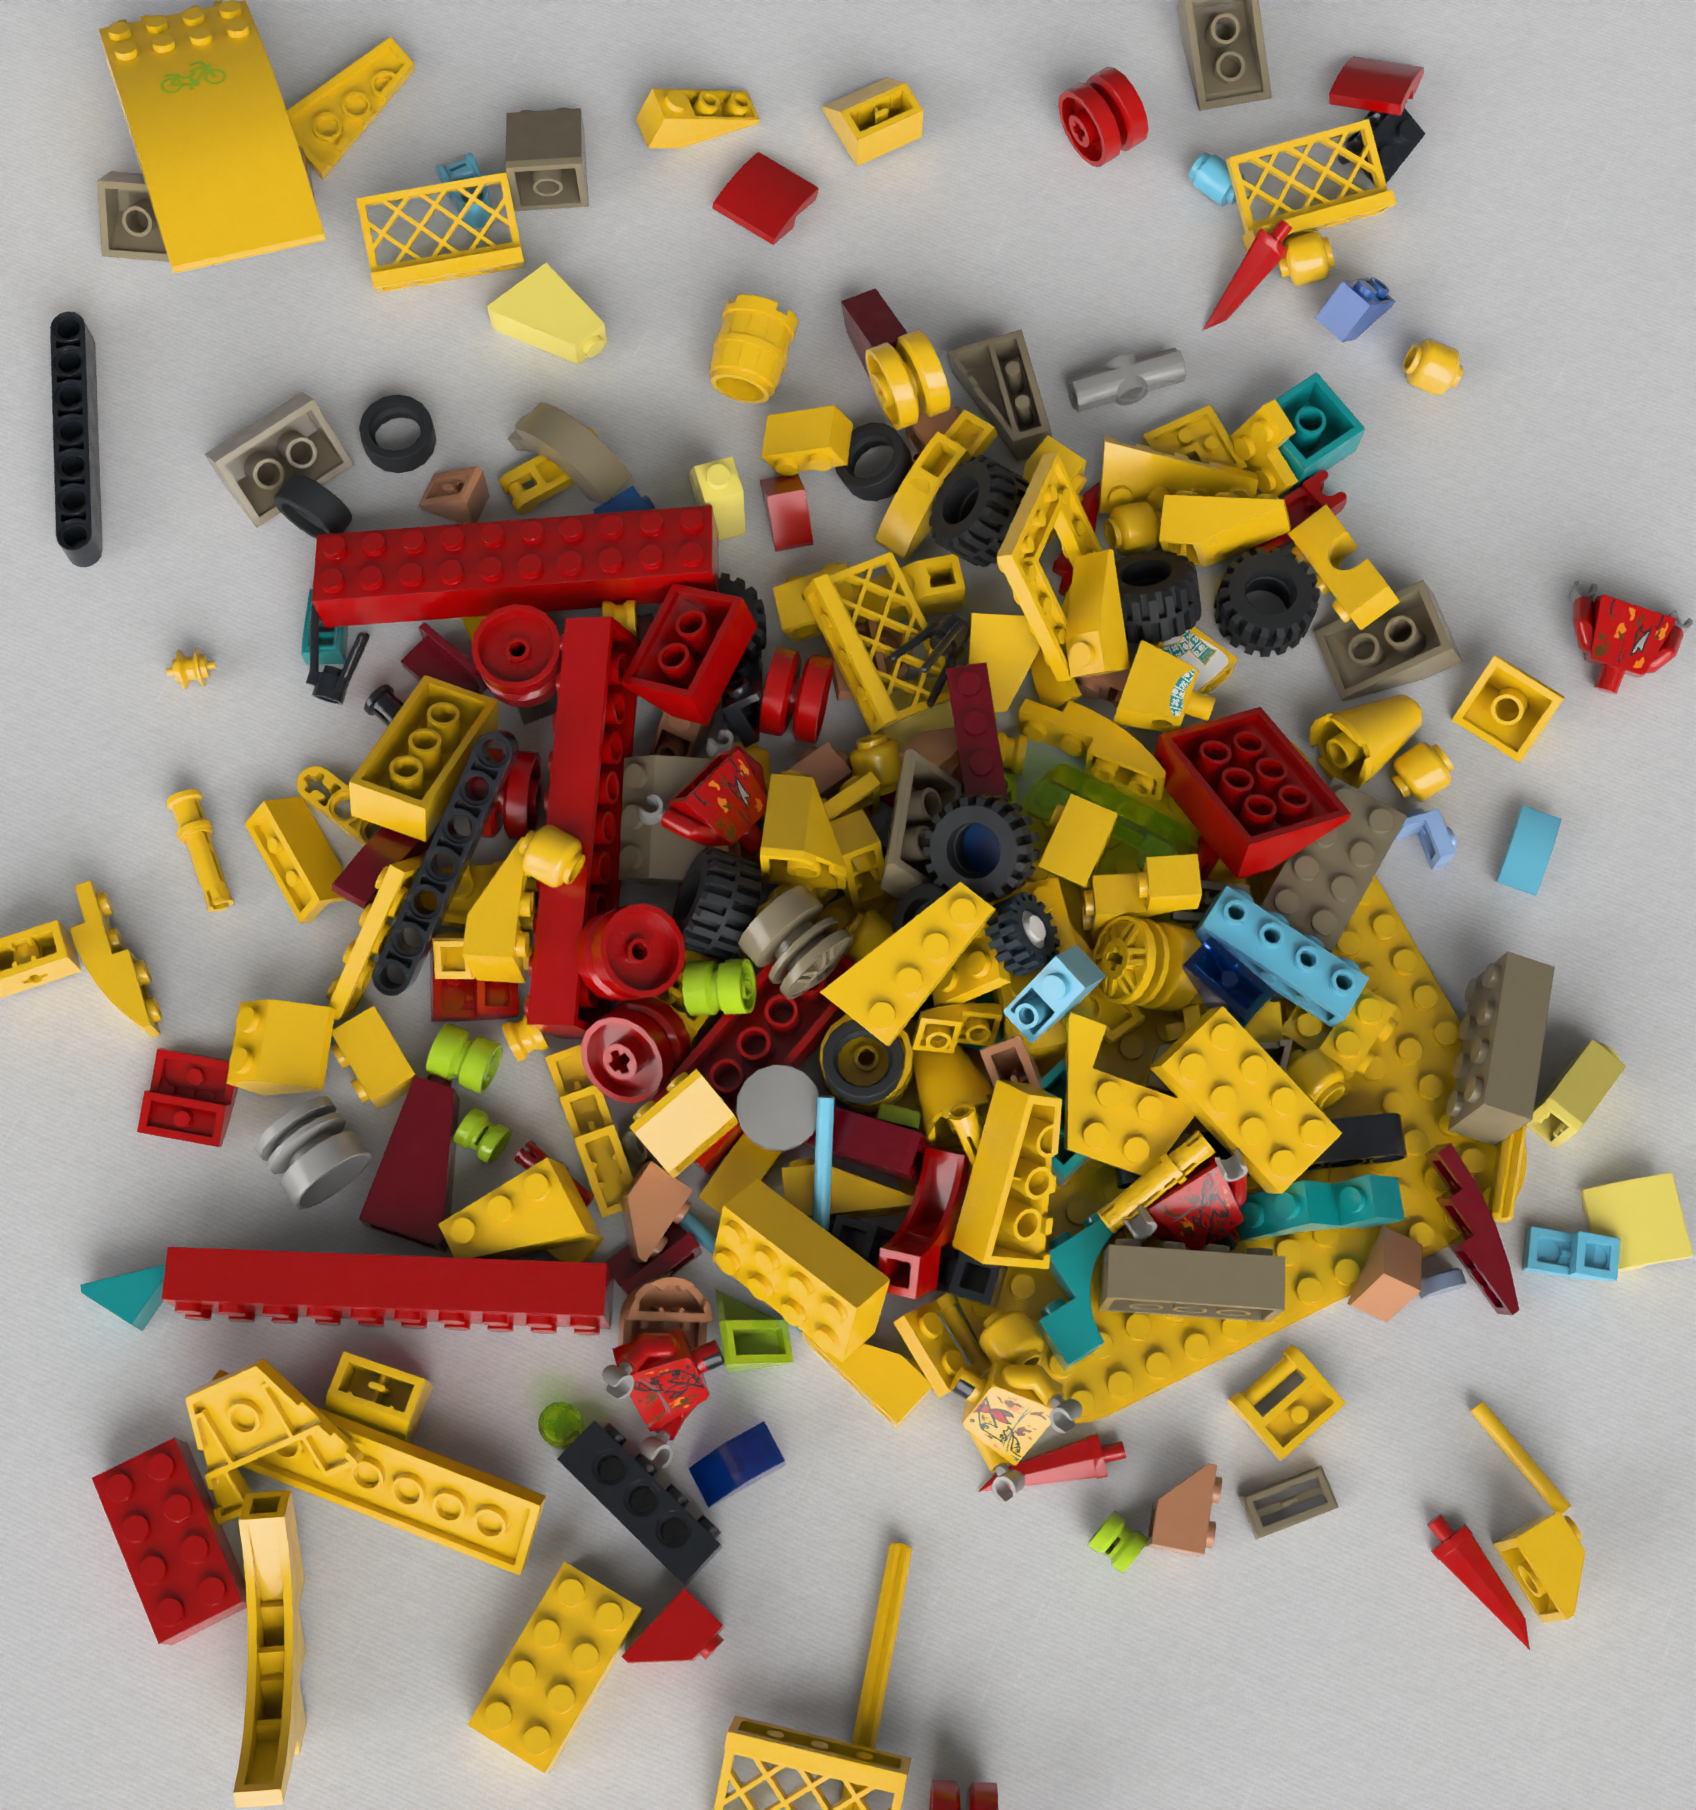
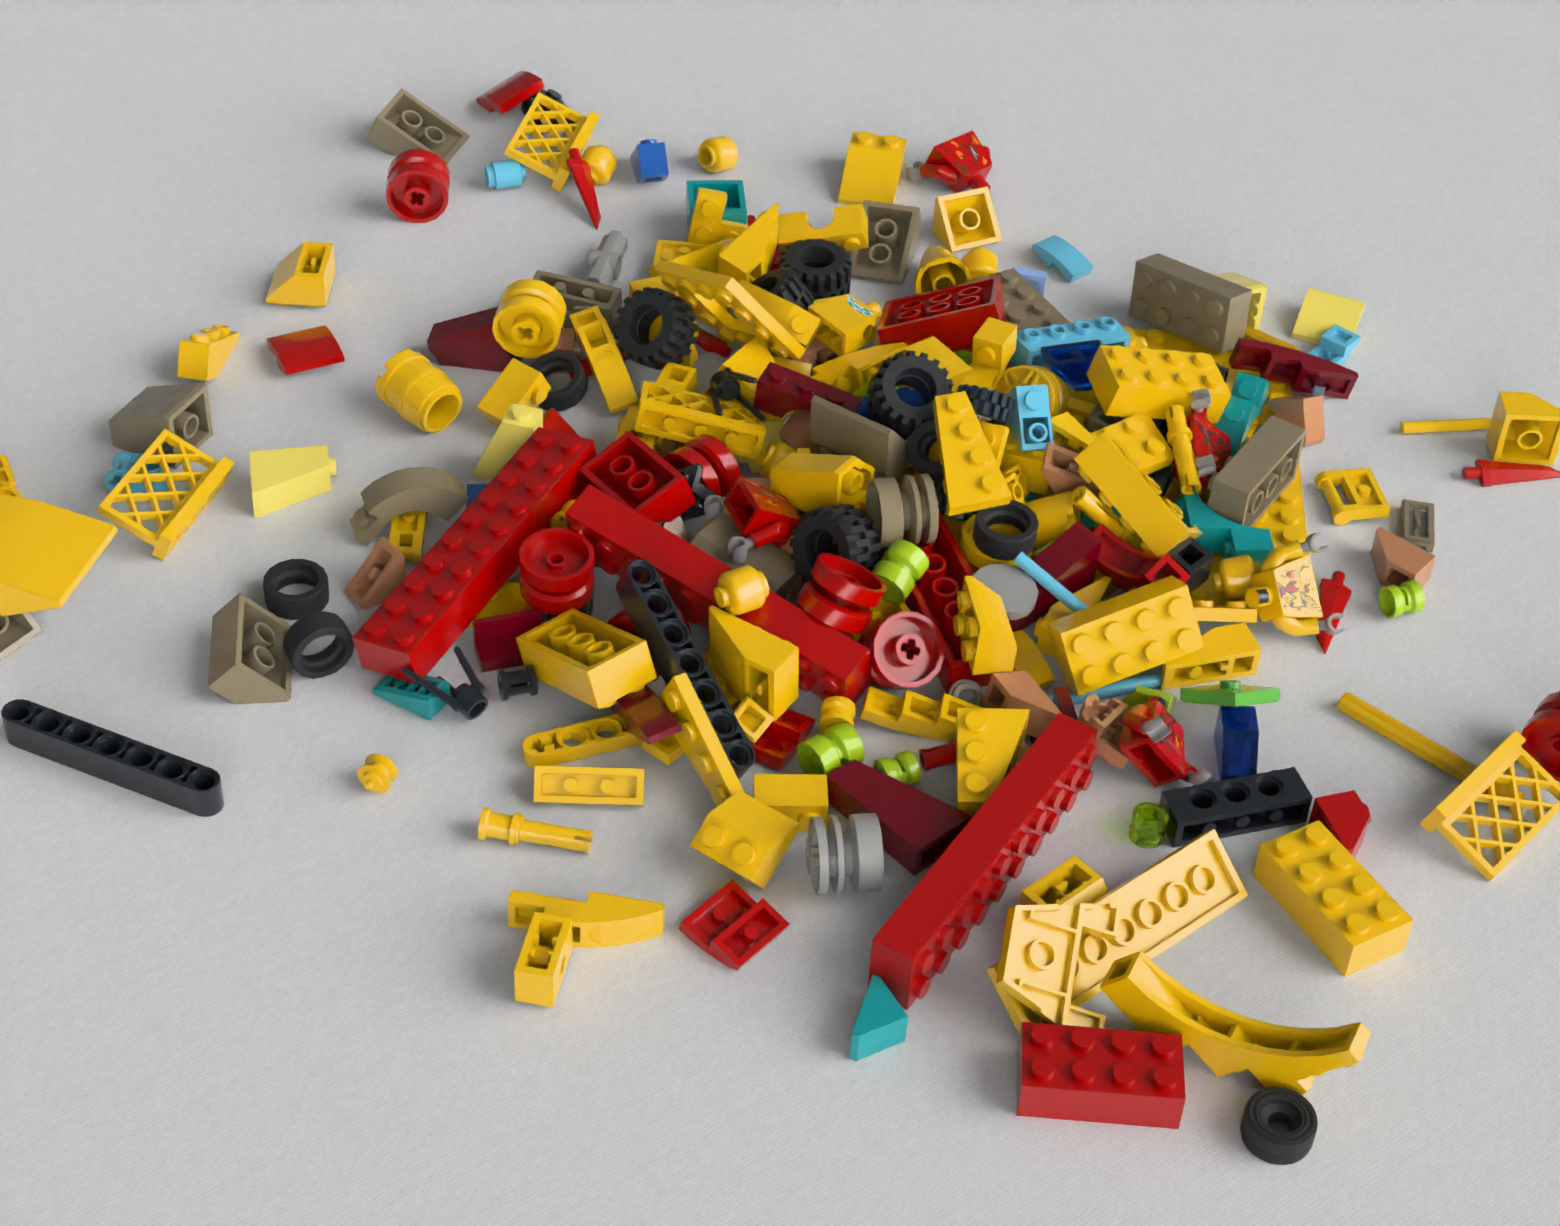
camera: 60 degrees left, 30 degrees down
(184, 1741) = (1276, 1146): none -> black tyre
(797, 1423) = (1230, 694): none -> bright green plate
(1535, 549) = (872, 168): none -> yellow slope

